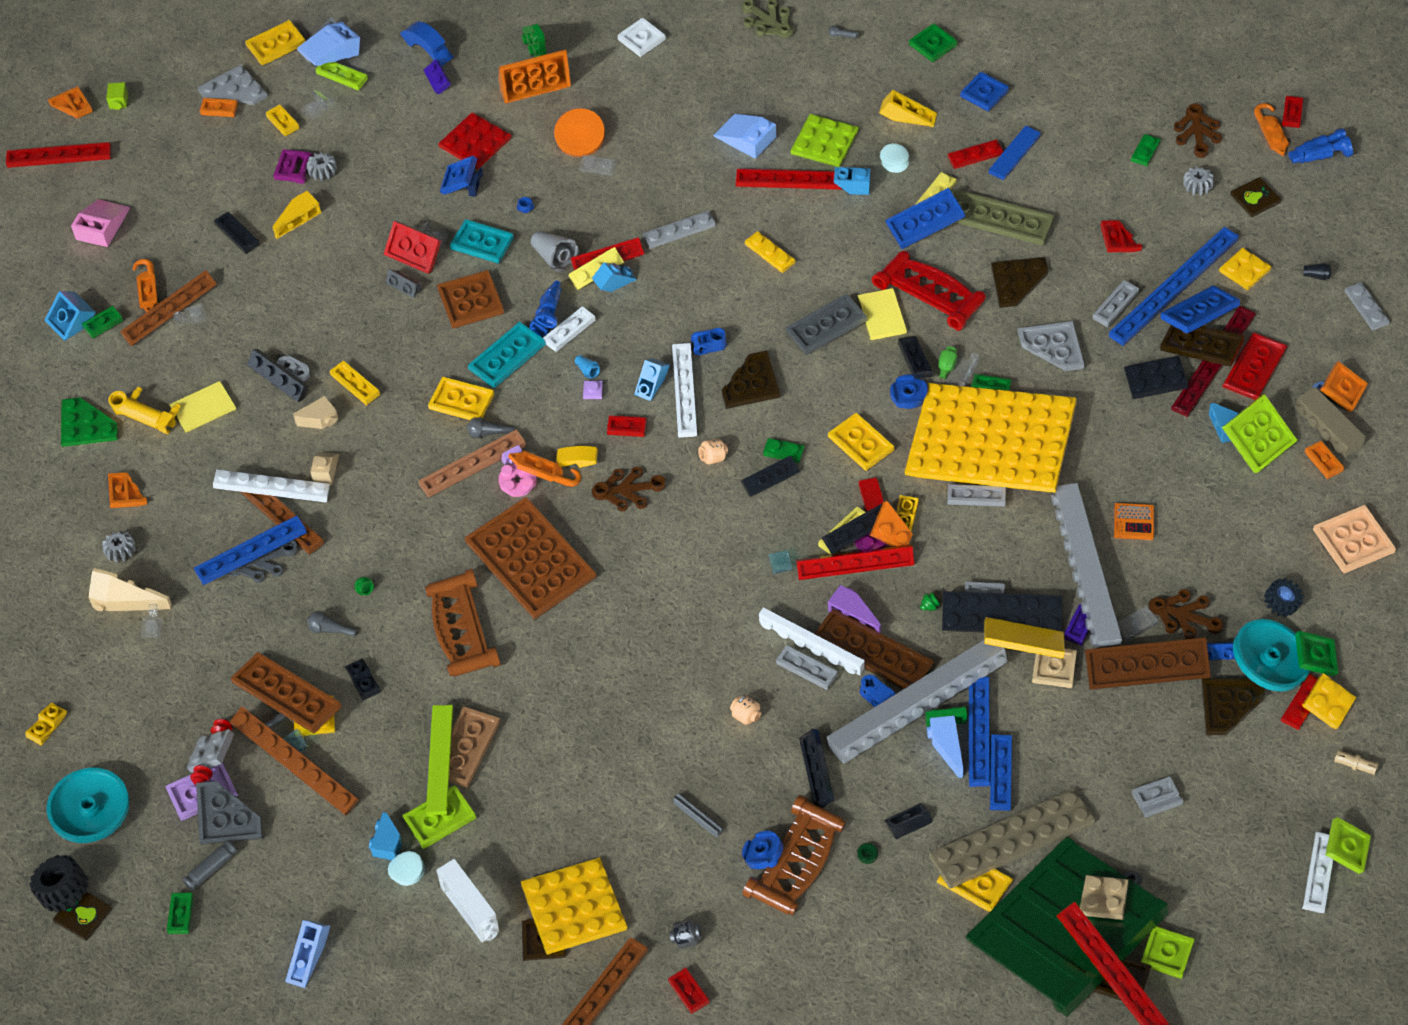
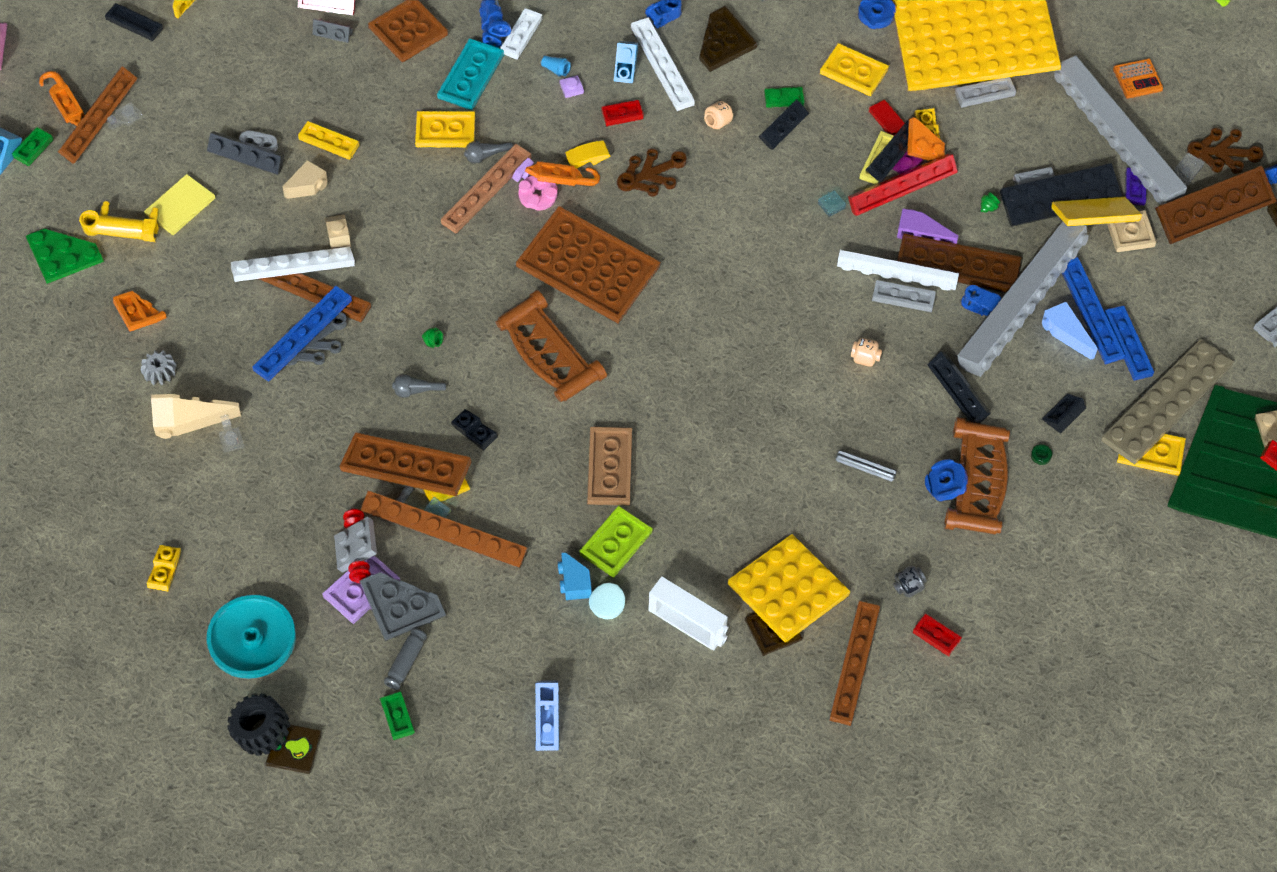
camera: 25 degrees left, 5 degrees up
(439, 760) = (593, 485): lime tile -> none
(959, 713) = (1069, 297): green plate -> none

